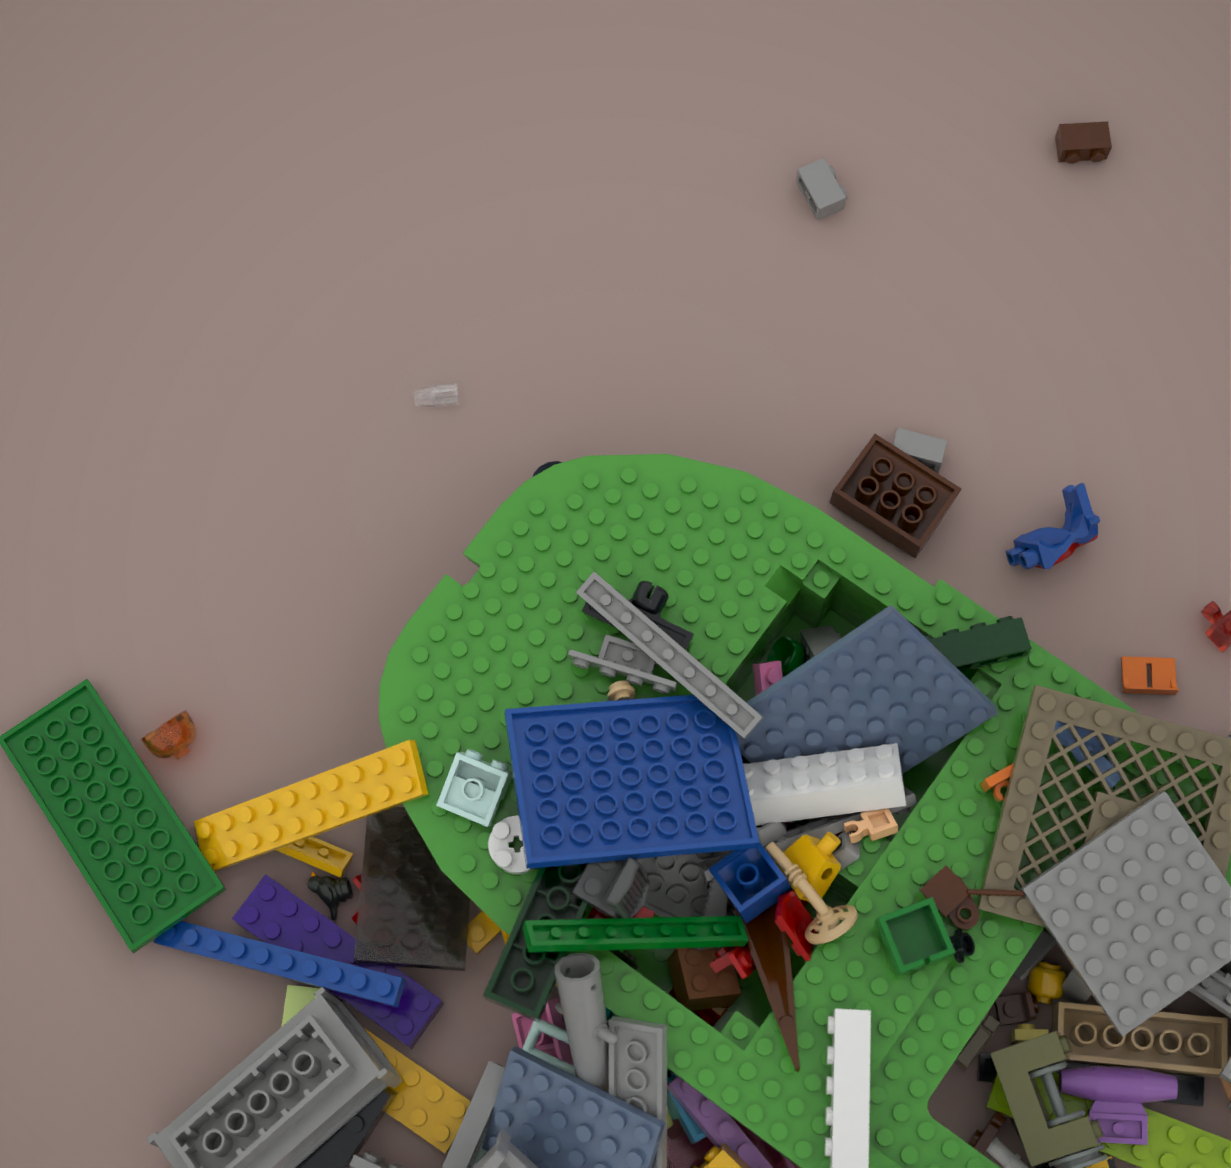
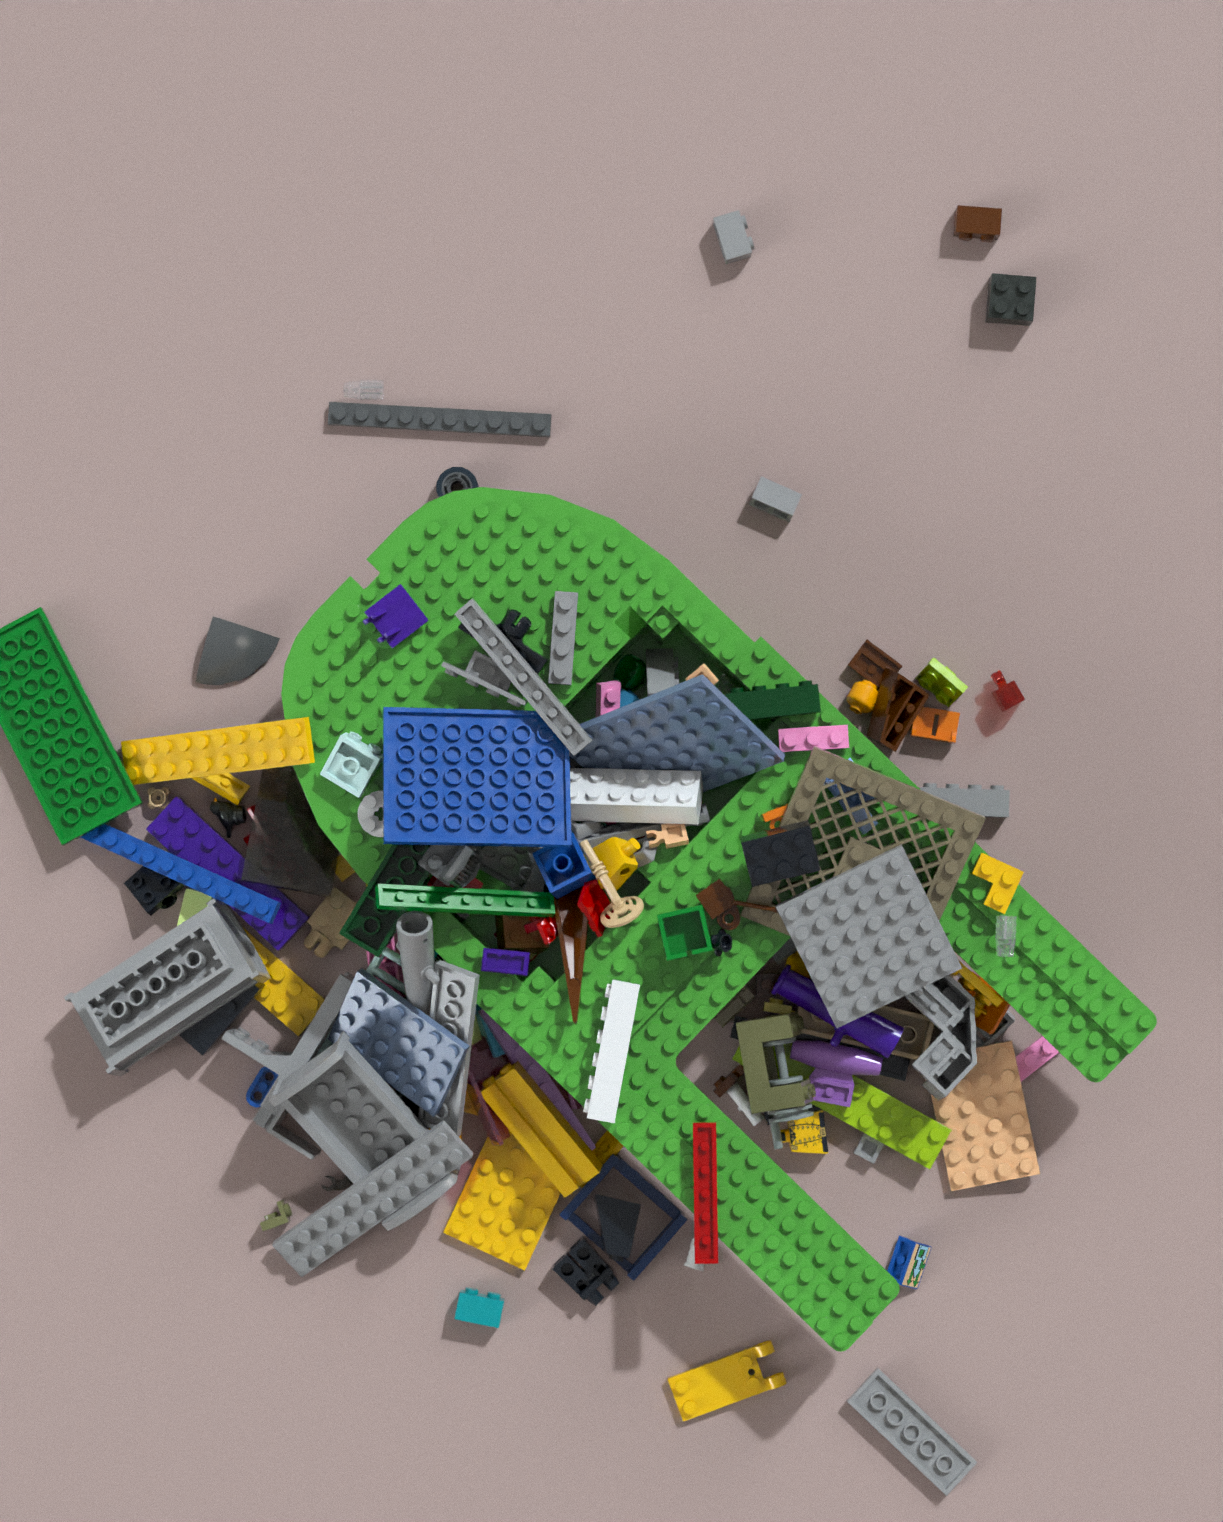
camera: 10 degrees right, 15 degrees up
(171, 737) = (108, 667): clear orange cylinder -> none
(238, 879) = (153, 793): none -> tan plate
(249, 992) = (153, 889): none -> black plate
(317, 701) = (233, 652): none -> dark grey brick
(467, 1008) = (328, 922): none -> tan plate
(506, 609) = (395, 616): none -> dark purple plate
(525, 417) = (439, 419): none -> dark grey plate
(621, 691) = (481, 700): tan plate -> none
(696, 1006) = (505, 961): none -> dark purple plate
(708, 609) = (563, 638): none -> light grey plate
(894, 495) = (748, 538): reddish brown slope -> none
(1018, 686) = (807, 737): none -> bright pink plate
(1018, 819) = (780, 853): none -> black brick
(1052, 545) = (866, 603): blue hips -> none
(1063, 648) = (862, 697): none -> light orange head
(1065, 618) = (871, 663): none -> reddish brown plate
(1104, 651) = (895, 709): none -> reddish brown wedge
(1136, 212) = (1011, 299): none -> pearl dark grey brick
(1148, 623) = (941, 682): none -> lime plate
(1151, 1040) = (869, 1029): none -> dark purple piece

